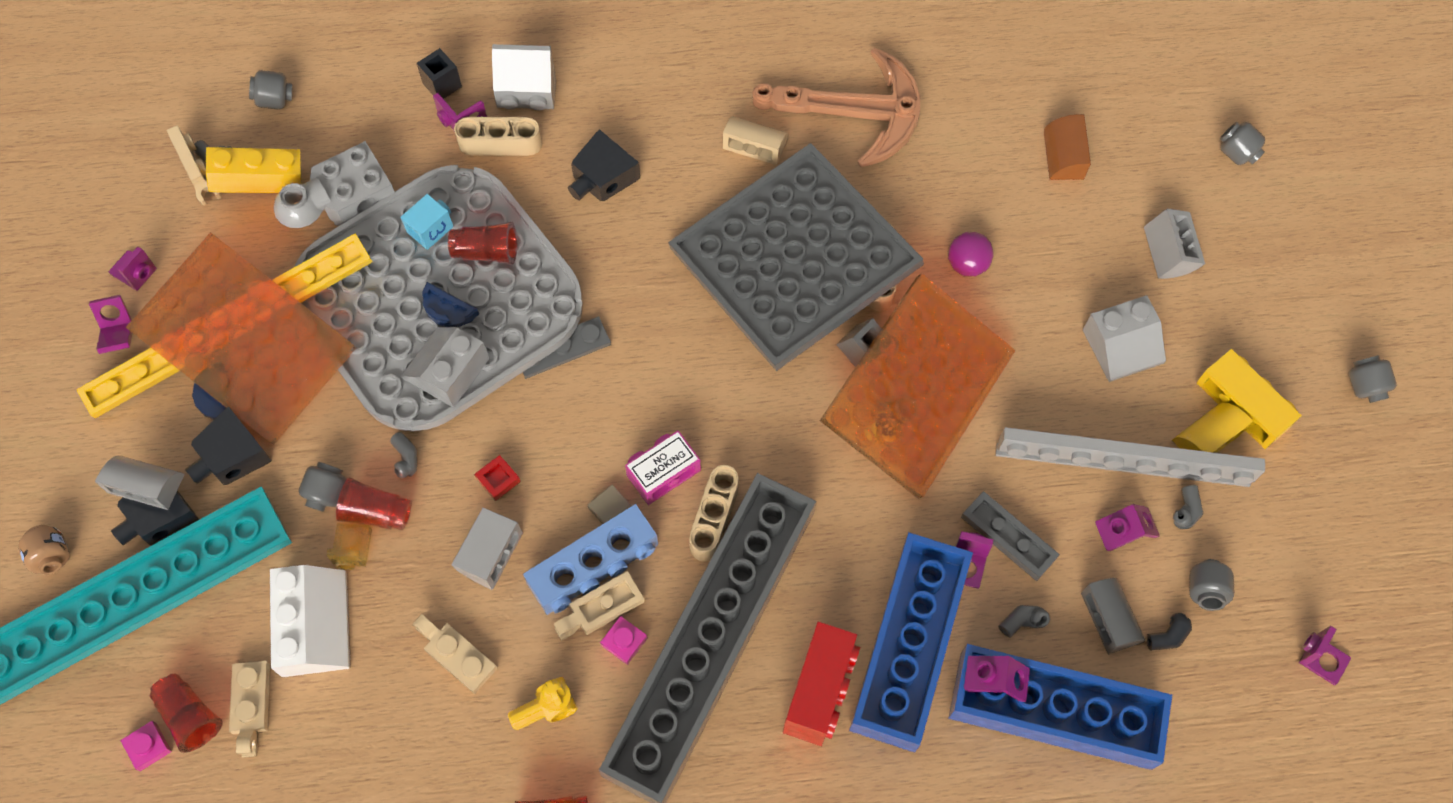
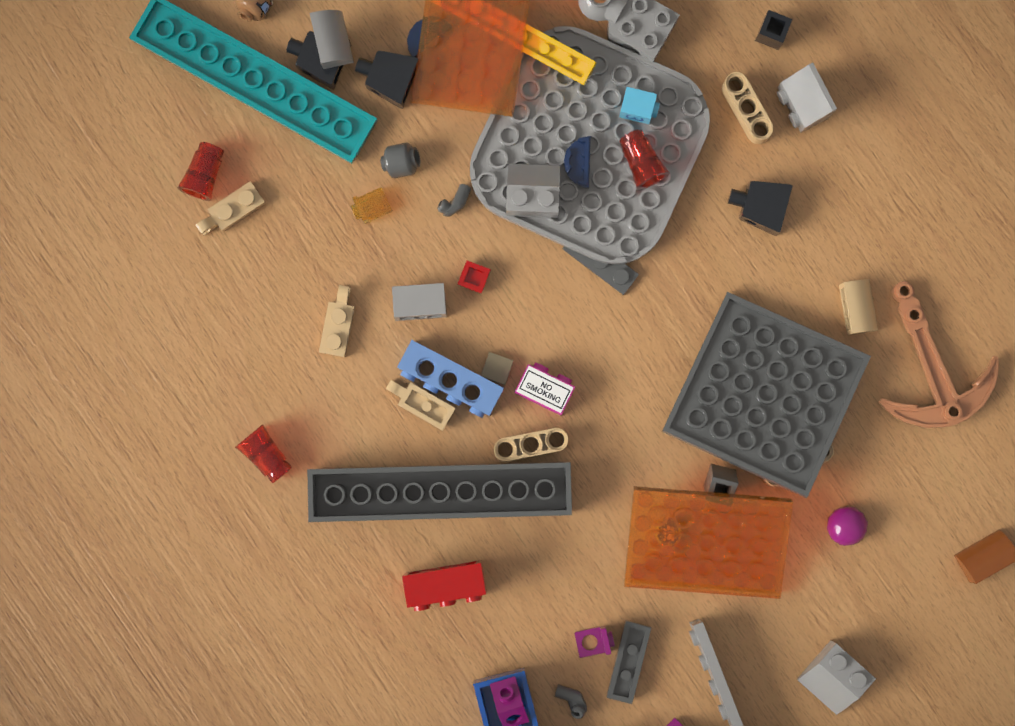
camera: 65 degrees right, 20 degrees up
(145, 746) = (170, 160): dark pink plate -> none
(308, 620) = (305, 213): white slope -> none
(372, 506) = (404, 205): clear red plant -> none
(449, 117) = (741, 59): magenta bracket -> none
(551, 701) = (338, 408): yellow axle -> none
(623, 640) = (408, 432): dark pink plate -> none
(911, 643) = (510, 630): blue brick -> none
(1174, 244) = (942, 679): light grey brick -> none

